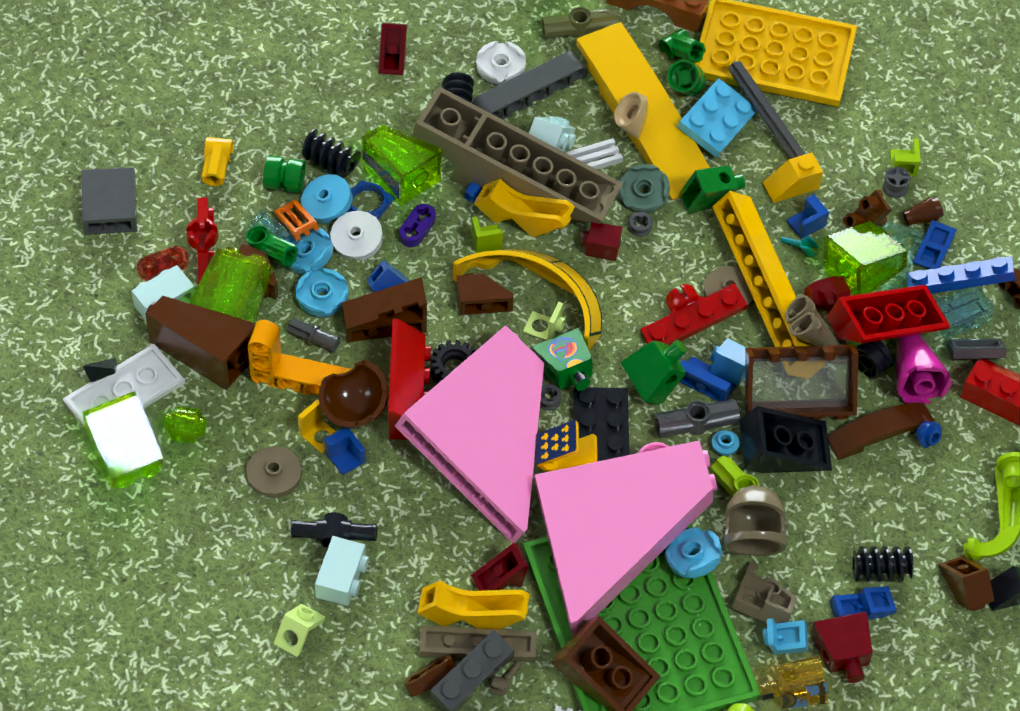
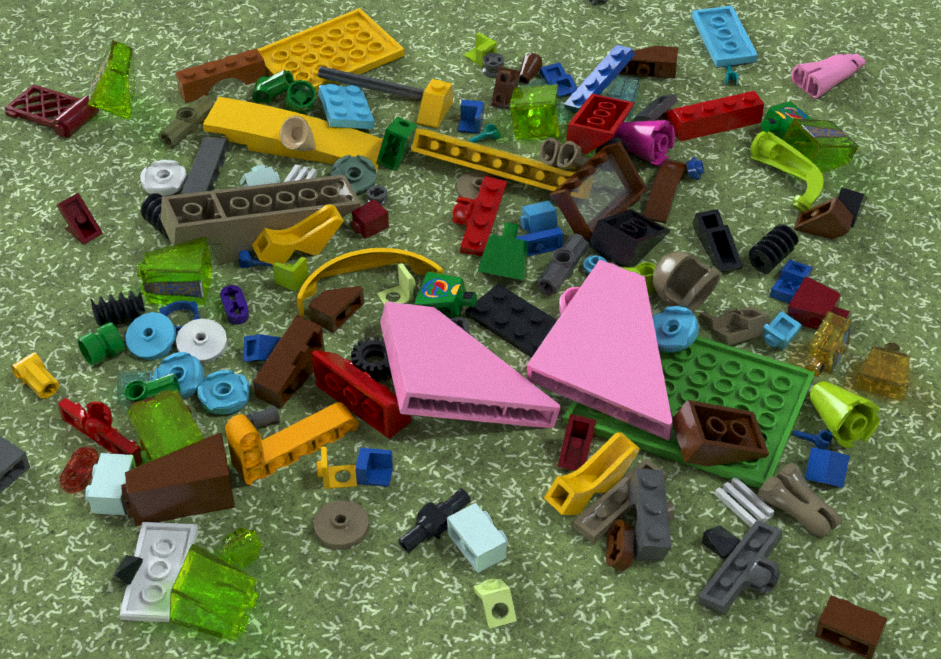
camera: 45 degrees left, 10 degrees down
(302, 228) = (147, 364): orange tile -> none
(354, 397) = (349, 418): reddish brown cylinder -> none
(563, 449) = (518, 340): piece -> none
(827, 291) = (539, 135): dark red rock -> none
(849, 515) = (717, 240): none -> black slope

